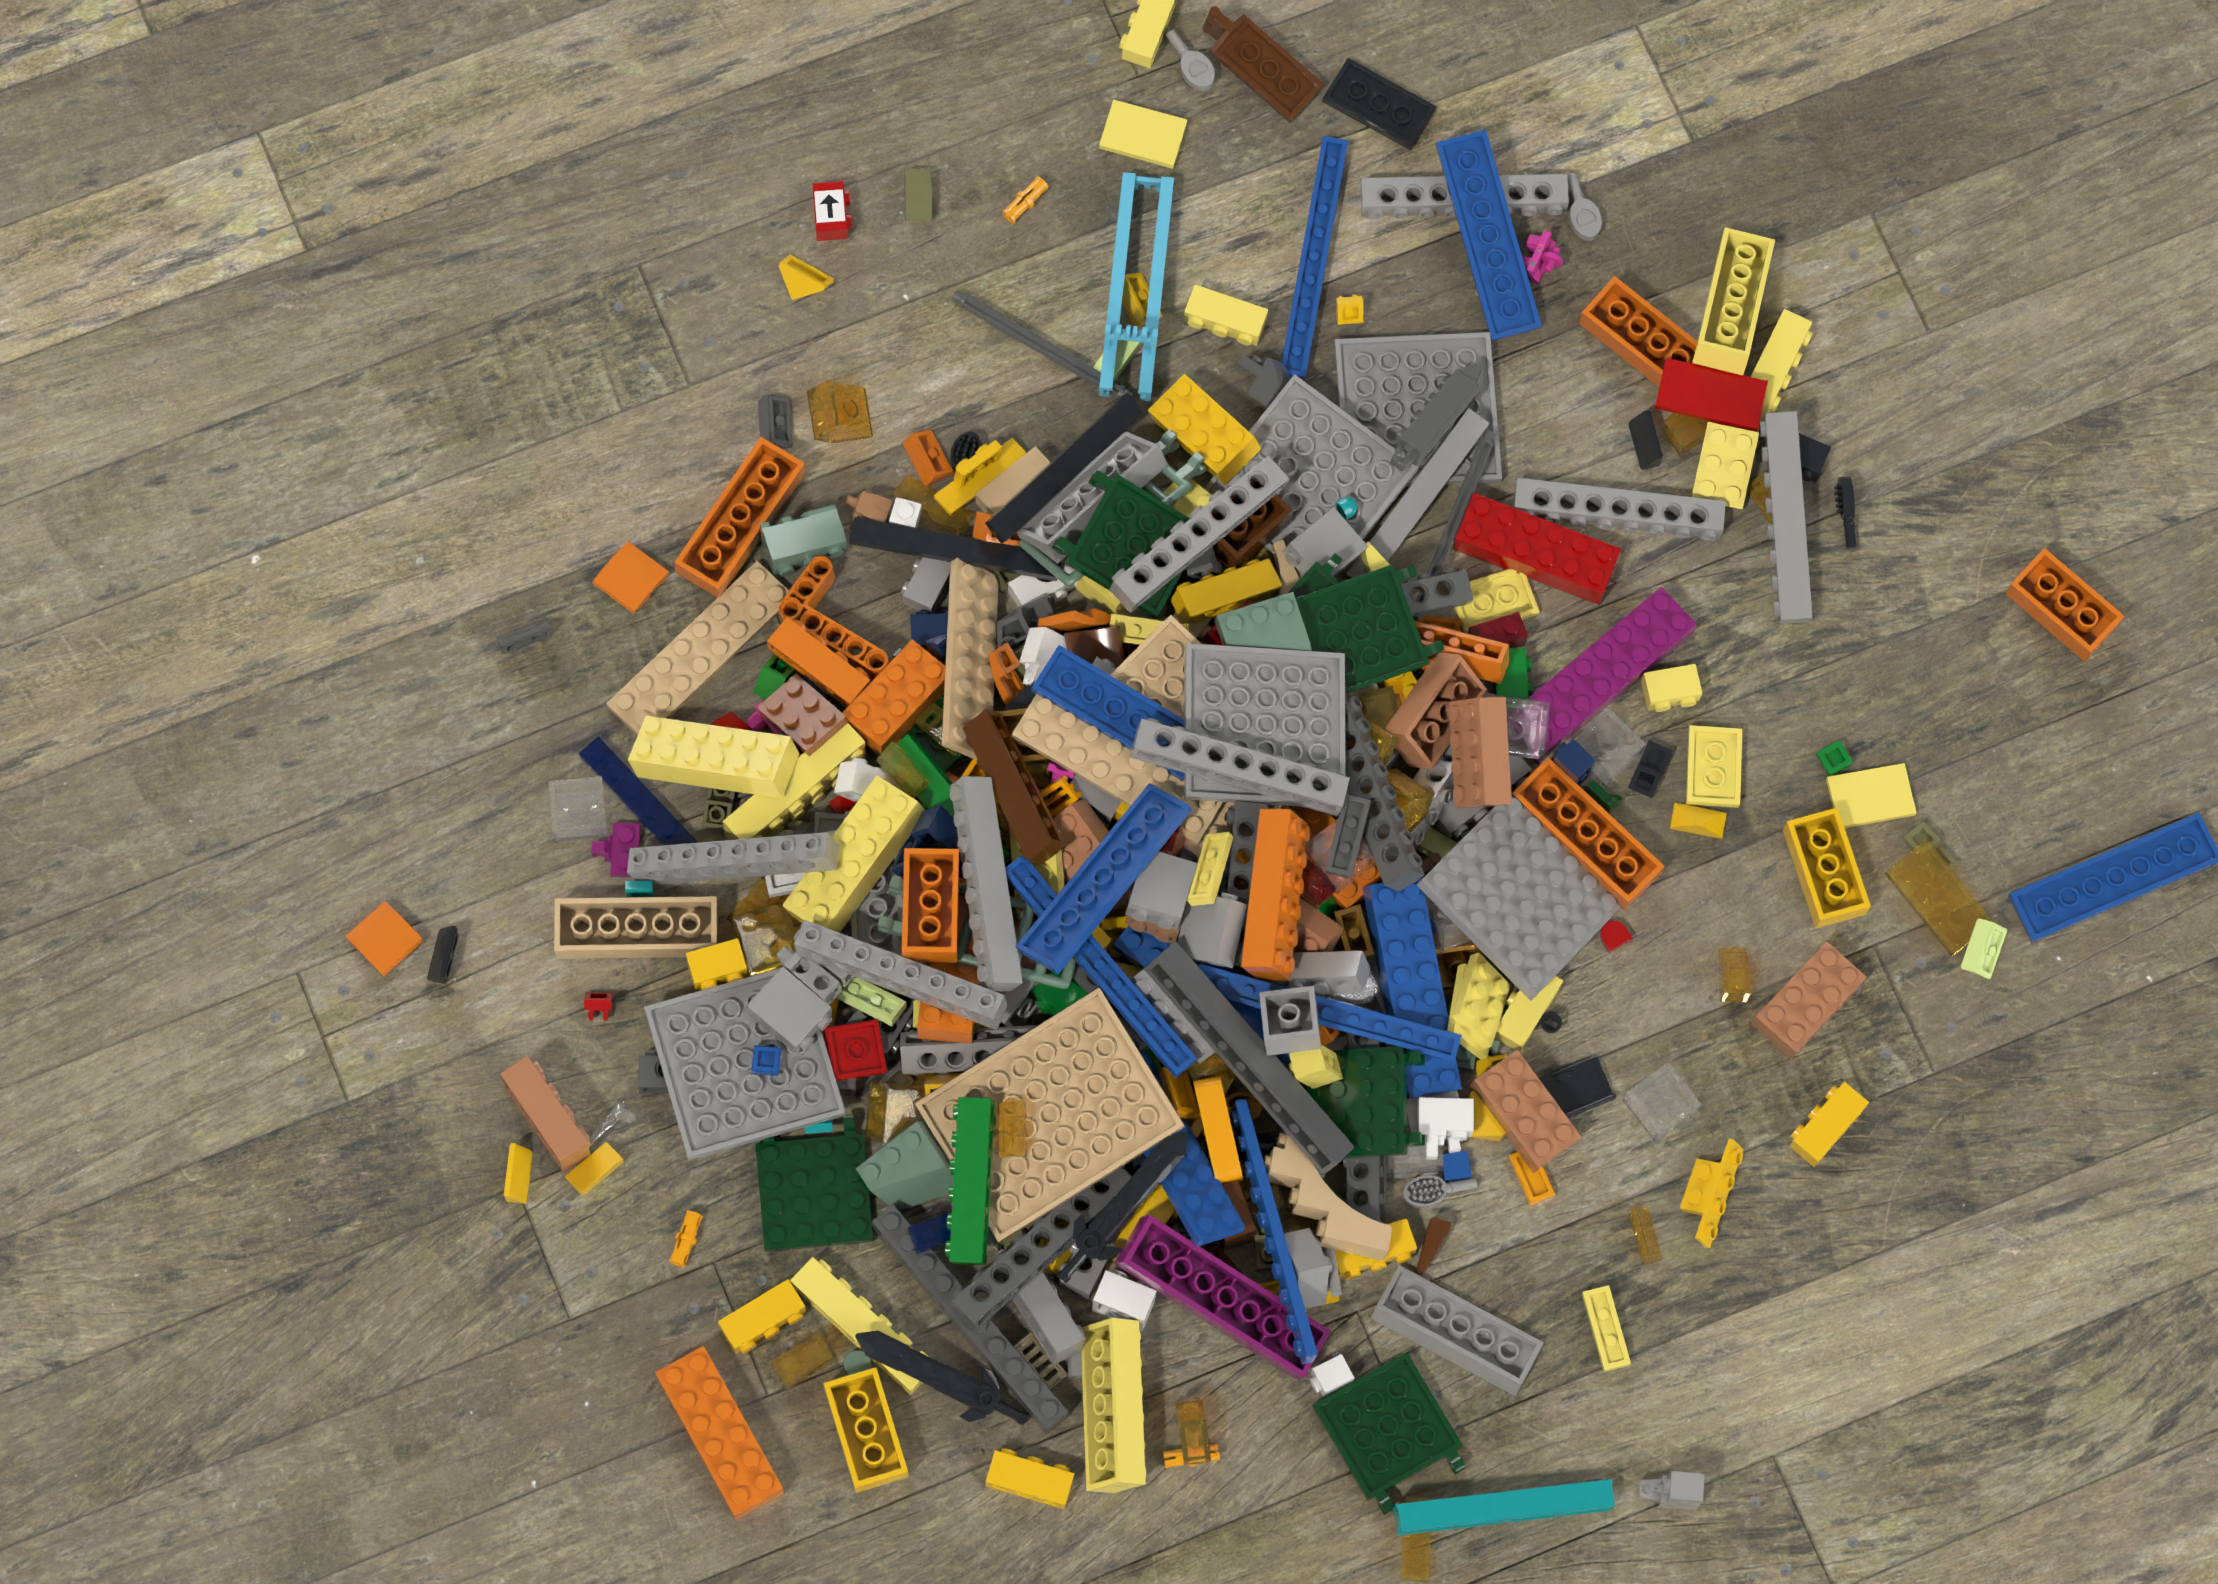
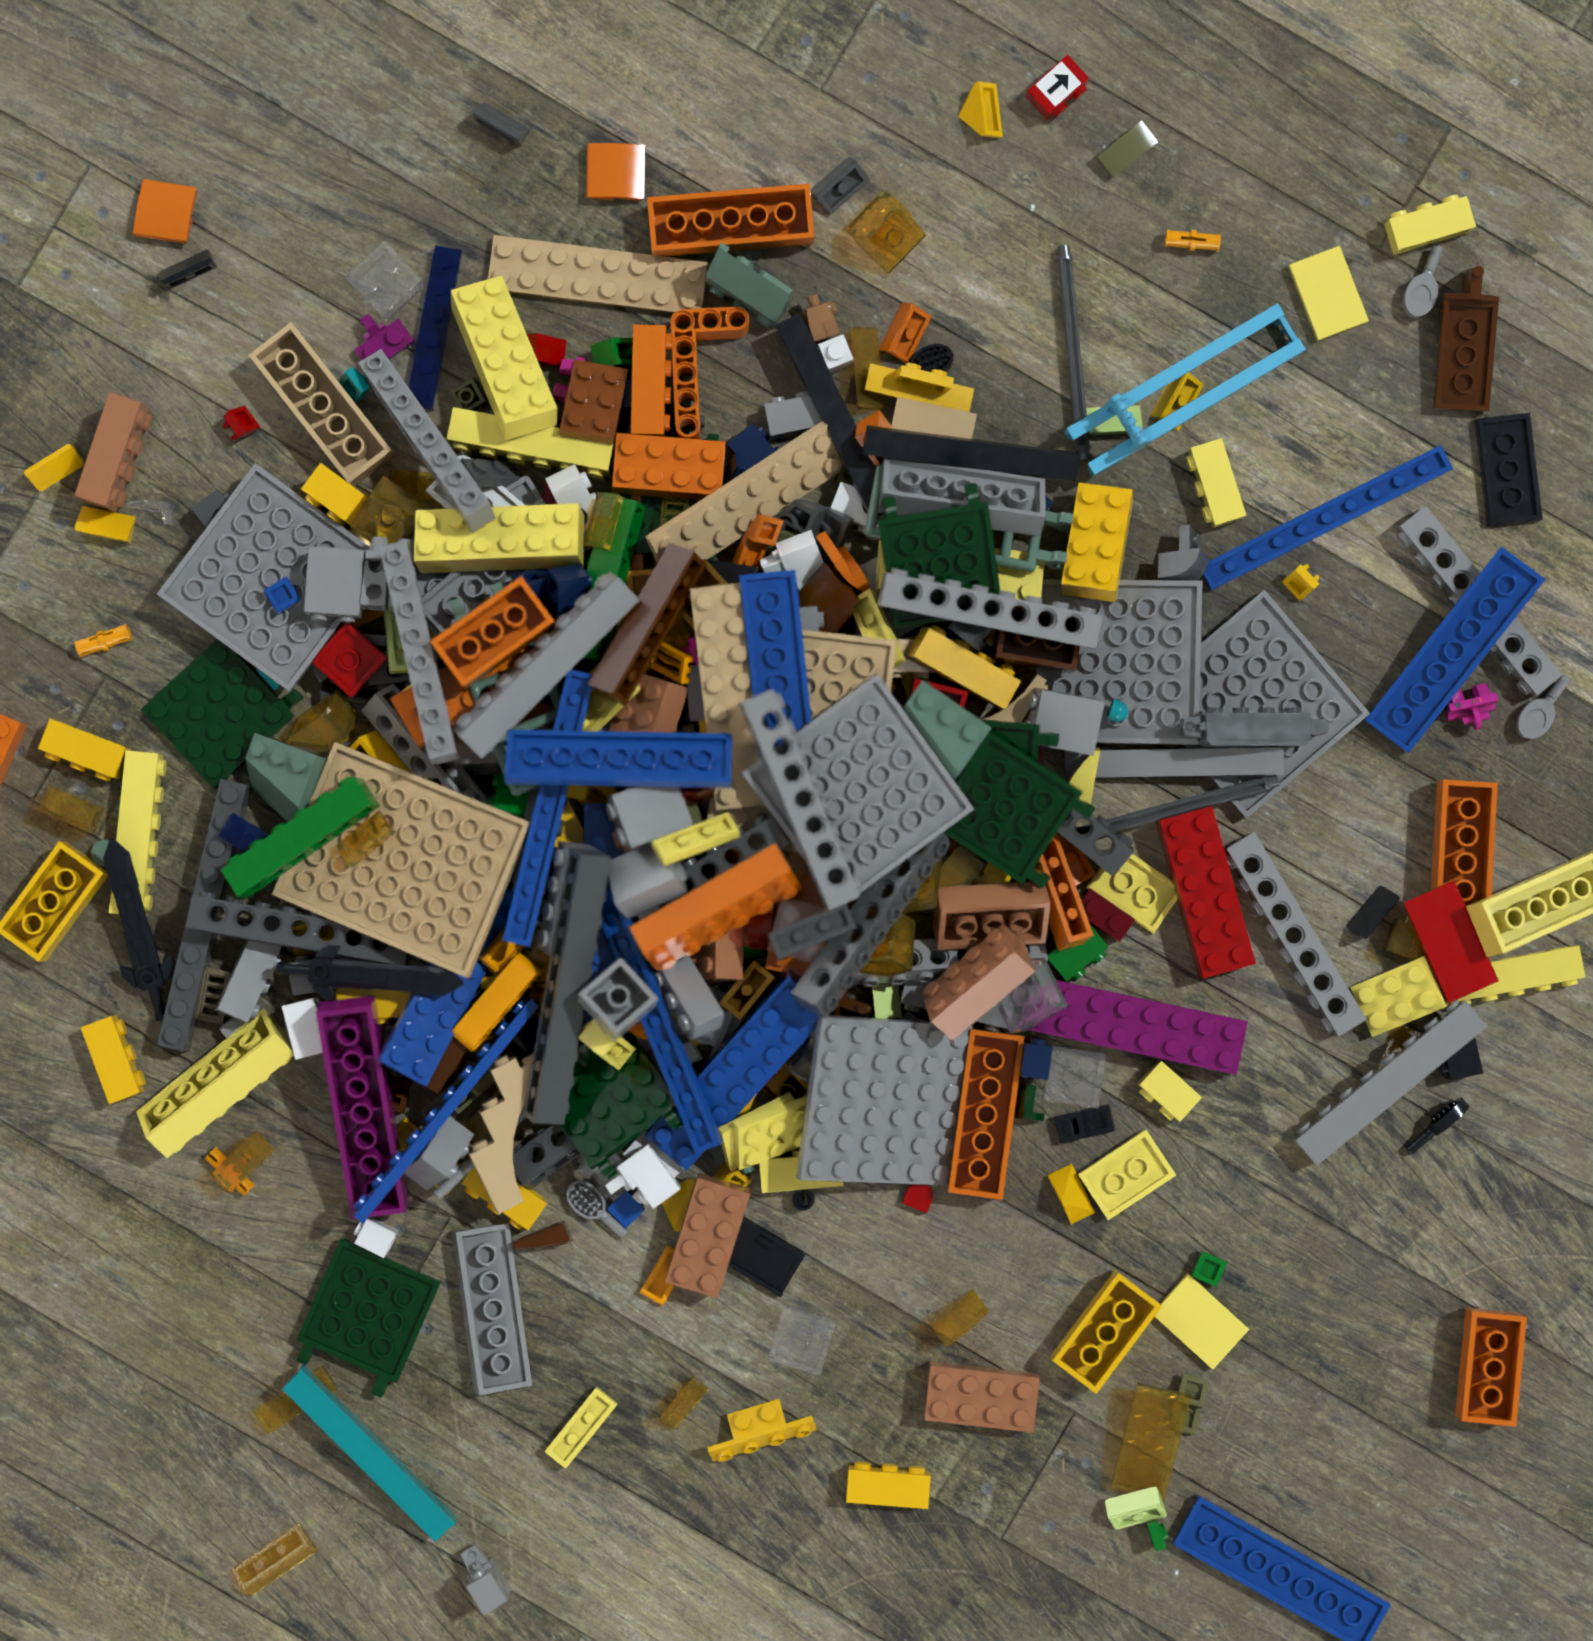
camera: 55 degrees right, 15 degrees up
(2016, 947) = (1157, 1534): none -> green plate

